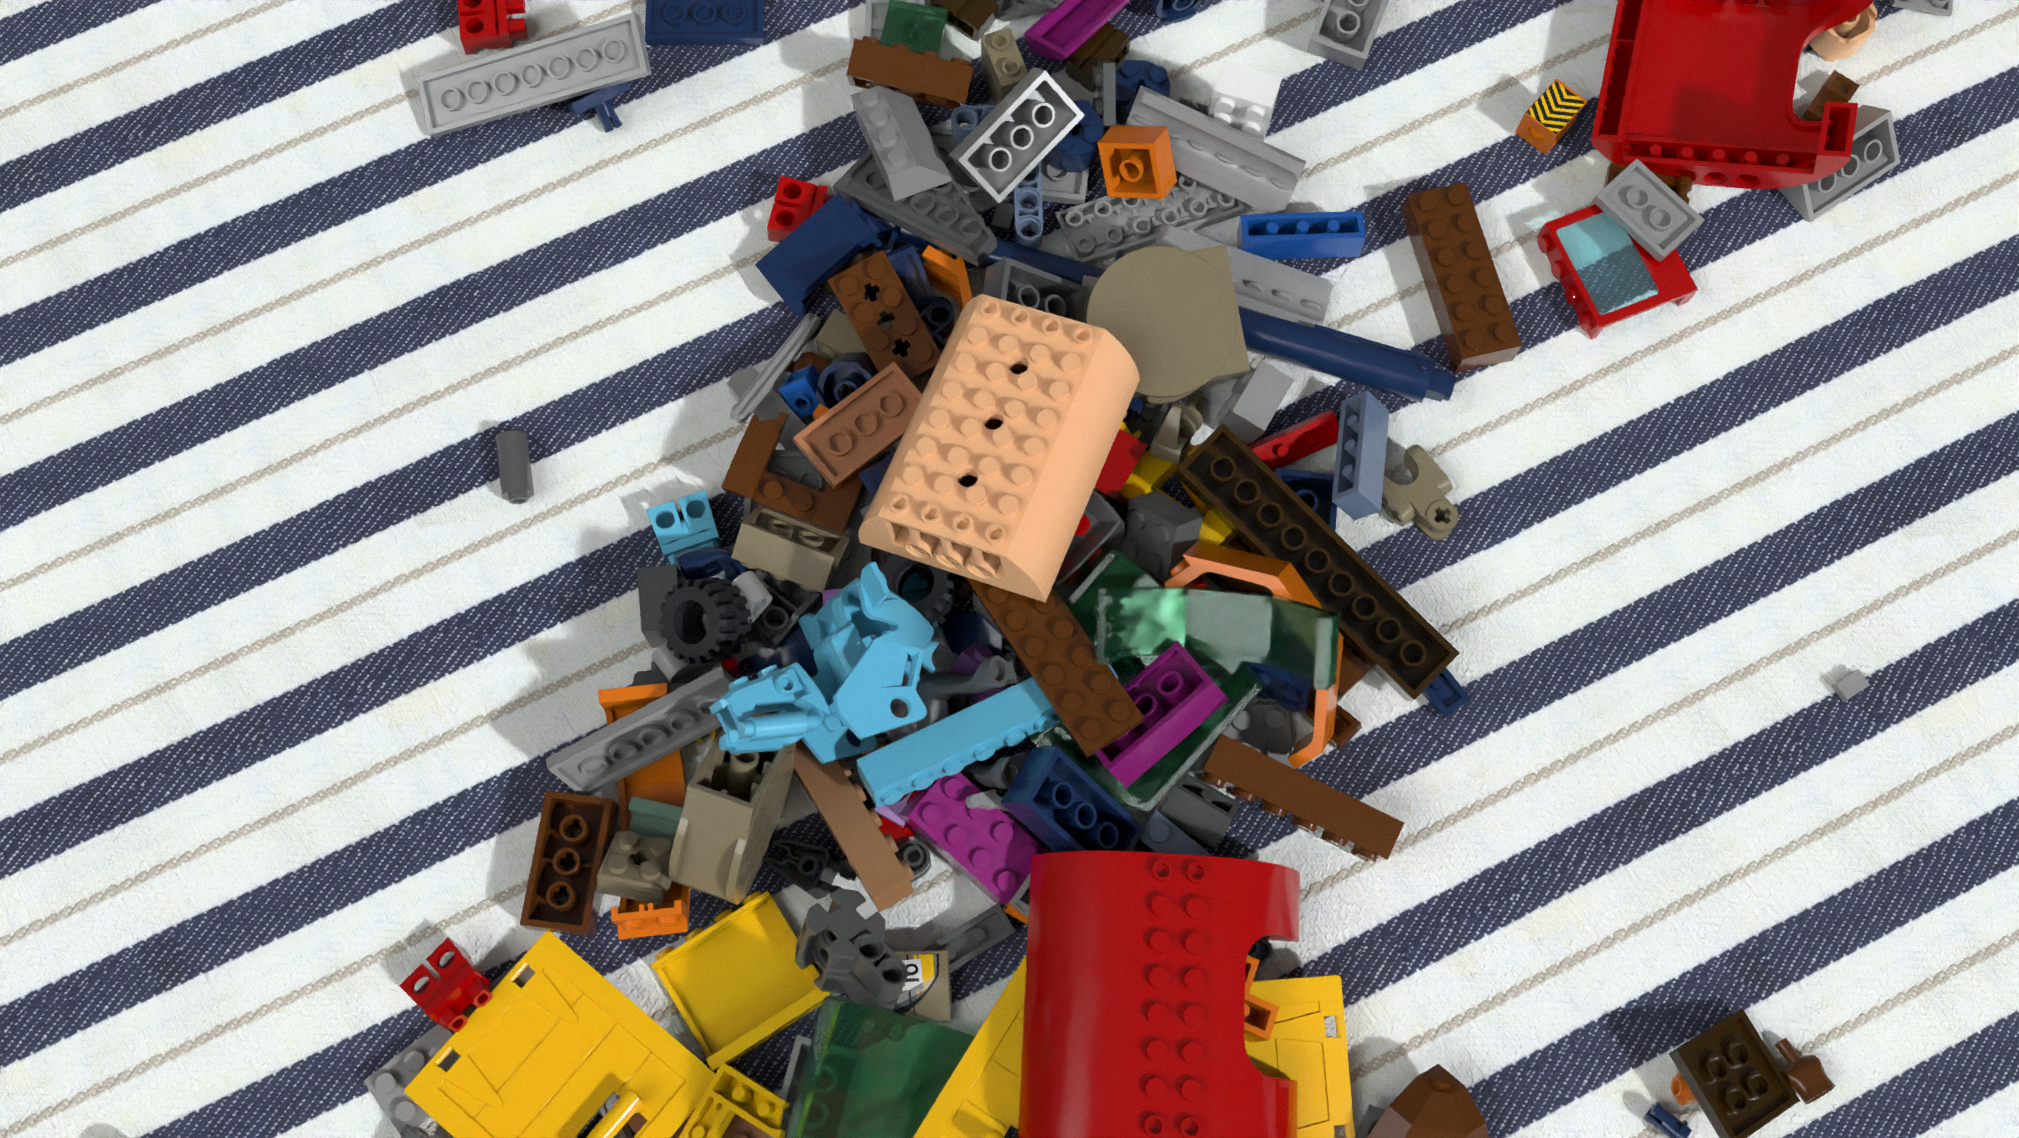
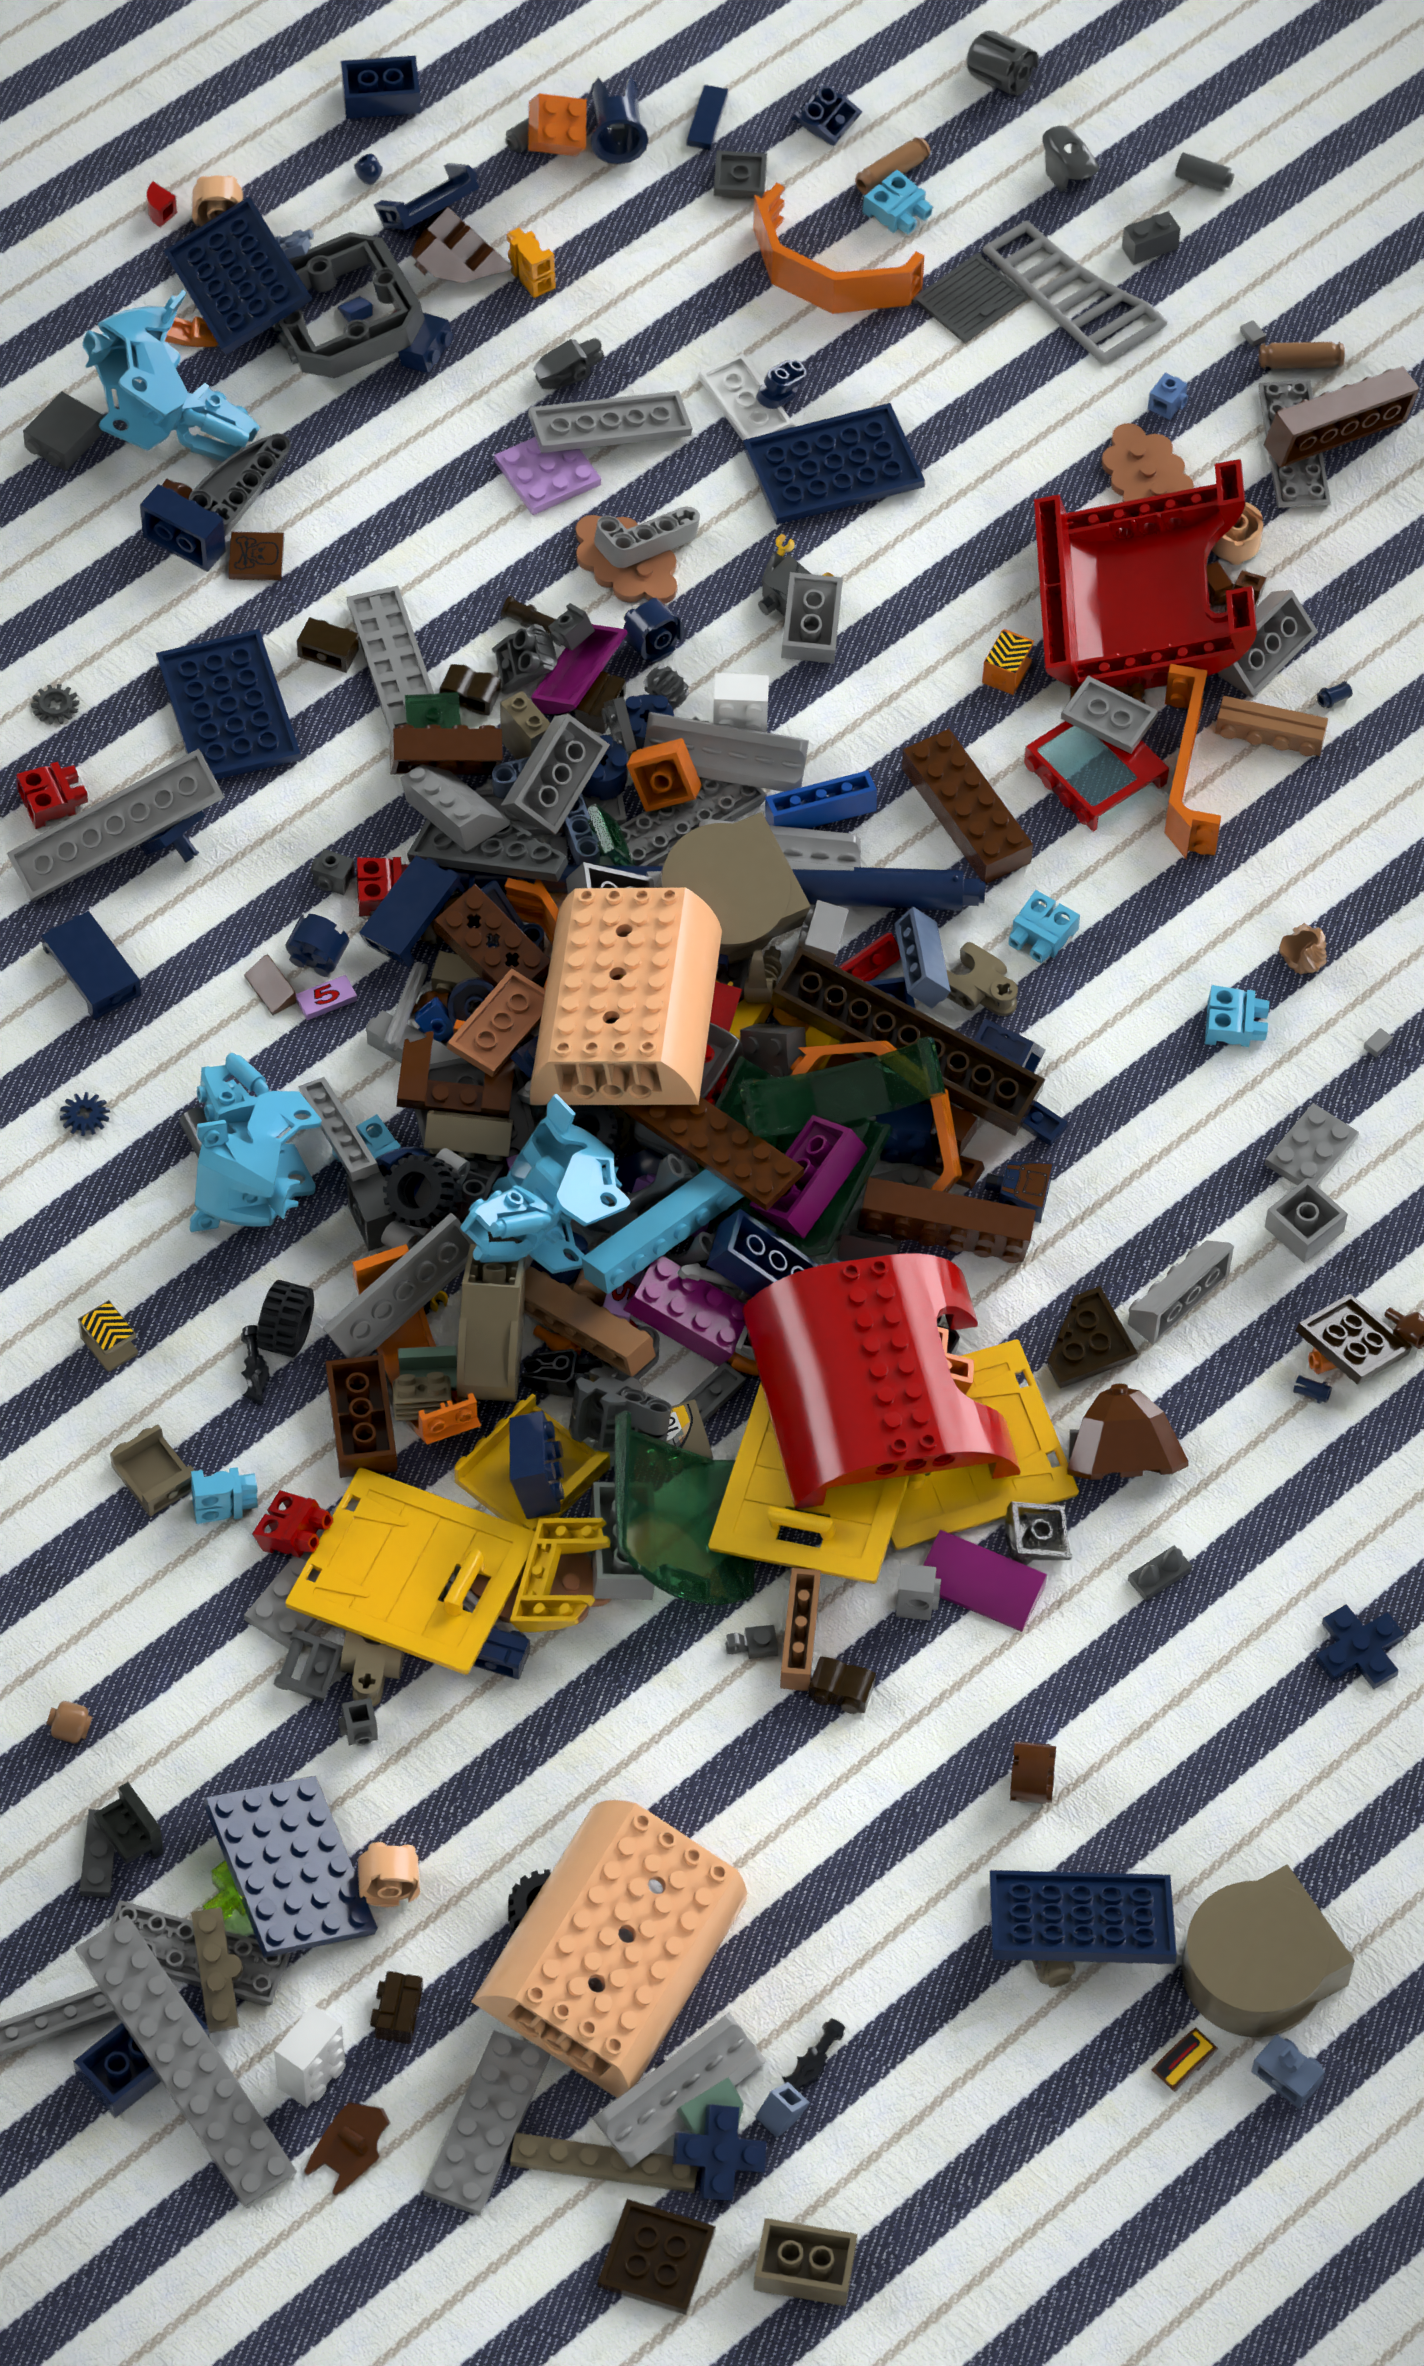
camera: 15 degrees left, 15 degrees down
(326, 865) = (152, 1470): none -> dark tan panel
(329, 684) = (107, 1336): none -> piece
(381, 926) = (222, 1495): none -> medium azure hips
(411, 408) = (80, 1123): none -> dark blue gear
(464, 228) = (92, 964): none -> dark blue panel
(480, 769) = (256, 1367): none -> black piece
(521, 721) = (285, 1318): none -> black tyre
(534, 529) = (240, 1156): none -> medium azure piece
(646, 300) = (271, 985): none -> slope
(652, 503) = (339, 1130): none -> light grey plate
(701, 328) = (326, 997): none -> lavender tile
(705, 266) = (316, 944): none -> dark blue brick
(735, 996) = (535, 1464): none -> dark blue brick
(753, 183) = (333, 871): none -> dark grey brick
(819, 830) = (555, 1341): none -> orange cone
(1057, 221) = (610, 836): none -> clear green plate
(1172, 54) = (667, 683): none -> dark grey gear
(1398, 769) = (1023, 1185): none -> torso
(1421, 589) = (1010, 1045): none -> dark blue panel
(1423, 986) = (1089, 1340): none -> dark brown plate
(1501, 448) = (1043, 927): none -> medium azure hips
(1546, 952) = (1181, 1289): none -> light grey slope
(1692, 360) = (1185, 827): none -> orange panel
(1693, 613) = (1232, 1016): none -> medium azure hips
(1715, 902) = (1306, 1220): none -> light grey brick
(1742, 801) = (1311, 1147): none -> light grey plate
(1796, 549) = (1304, 949): none -> medium nougat hair
(1807, 82) = (1217, 584): none -> reddish brown brick
(1823, 264) = (1271, 726): none -> medium nougat brick
(1894, 243) = (1329, 696): none -> dark blue pin

